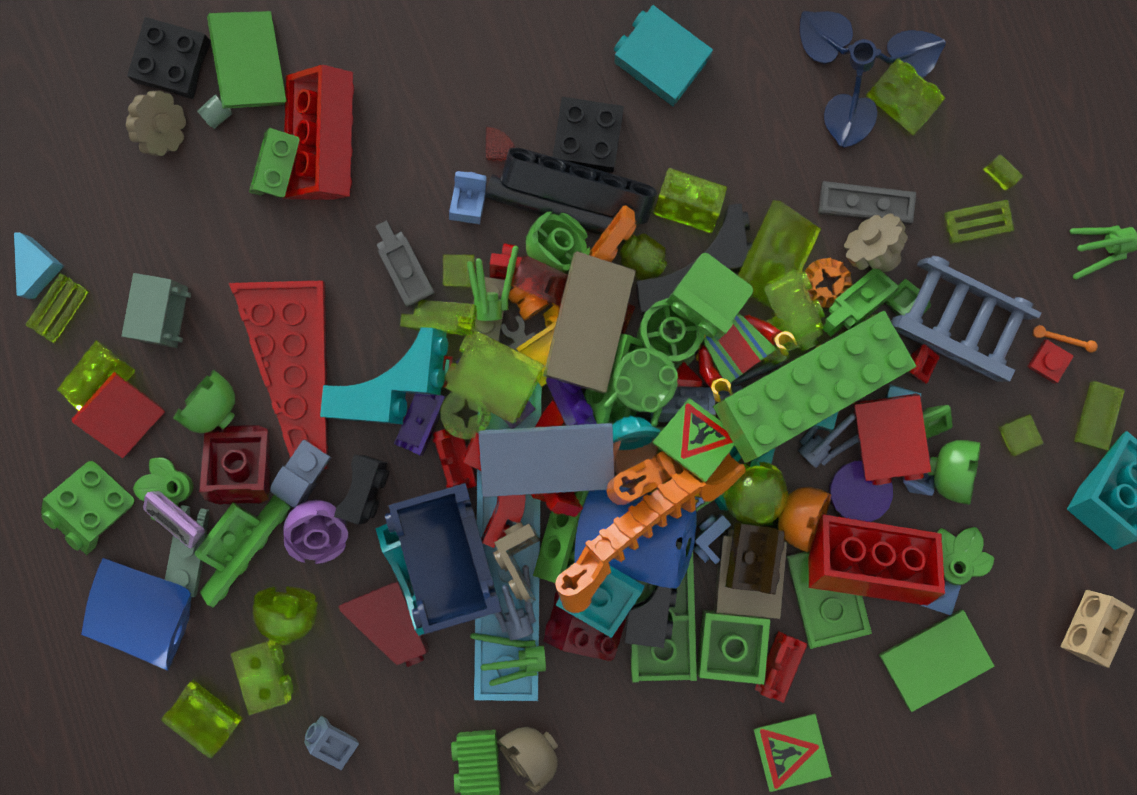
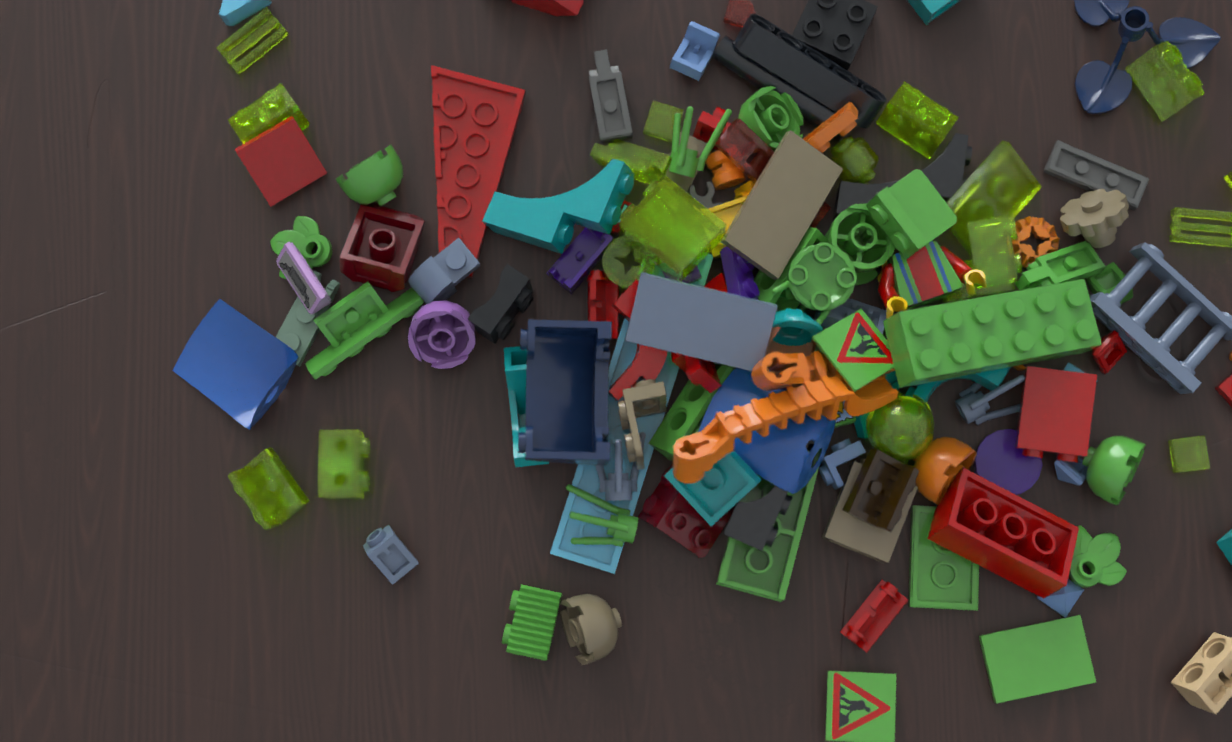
camera: 15 degrees right, 5 degrees down
(85, 506) = (218, 243): bright green bracket -> none
(155, 310) = (350, 69): sand green container -> none
(284, 615) = (384, 409): clear neon green cylinder -> none
(387, 623) = (487, 448): dark red slope -> none
(687, 377) = (863, 292): red slope -> none
(733, 647) = (831, 577): bright green brick -> none
(937, 420) = (1107, 413): bright green slope -> none

